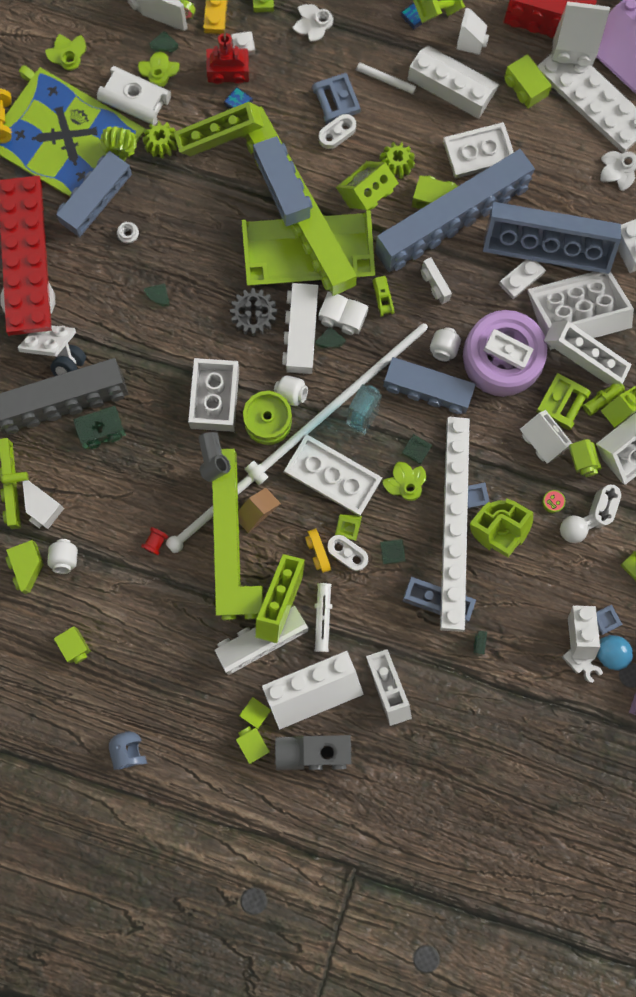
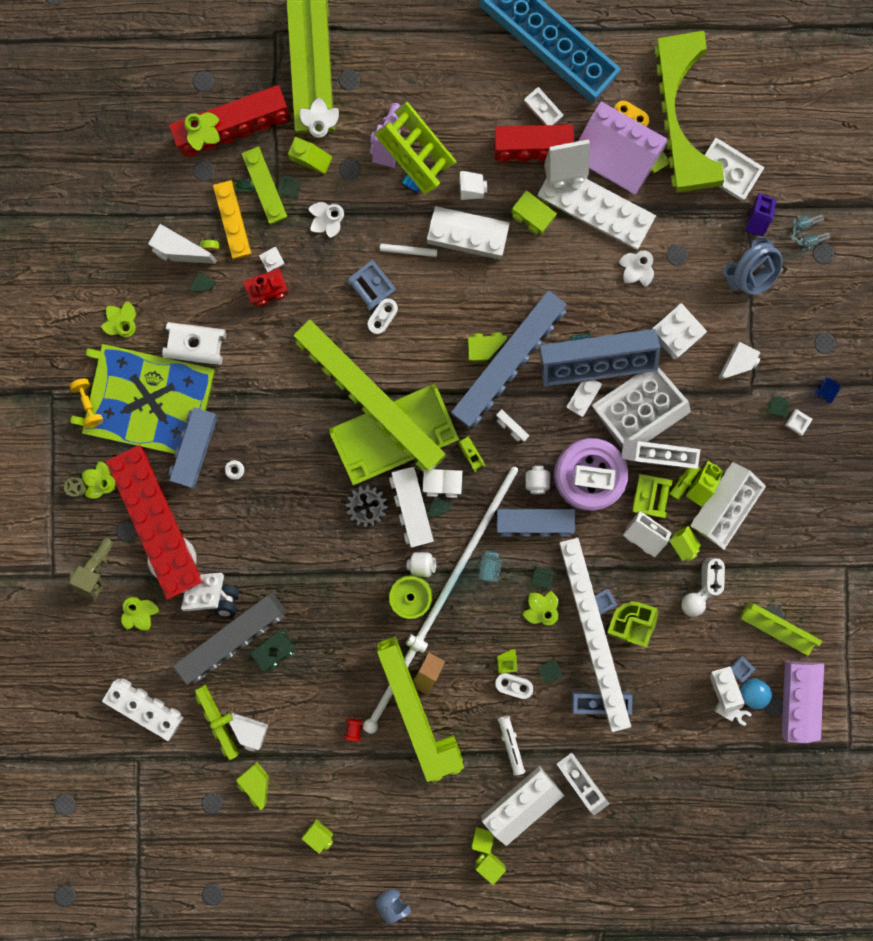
camera: 10 degrees left, 10 degrees up
(62, 556) = (282, 767): white head -> none
(118, 141) = (198, 394): lime gear -> none
(158, 69) = (204, 307): lime plate -> none
(158, 294) = (280, 516): clear green tile -> none
(160, 139) = (228, 371): lime gear -> none
(214, 394) = (359, 592): white brick -> none
(214, 463) = (384, 666): dark grey piece -> none
(219, 129) = (281, 356): lime brick -> none
(237, 98) = (286, 316): tile -> none
(247, 648) = (468, 783): white slope -> none
(279, 598) = (473, 749): lime brick -> none
(282, 181) = (353, 389): sand blue brick -> none
(298, 751) = (535, 859): dark grey brick -> none
(313, 541) = (494, 699): yellow plate -> none
(333, 475) = (480, 624): white plate -> none
(367, 185) = (426, 363): lime piece -> none
(403, 157) = (440, 320): lime gear -> none
(477, 149) = (511, 292): white plate -> none
(480, 643) = (645, 724): clear green tile -> none
(553, 501) = (669, 584): tile -> none

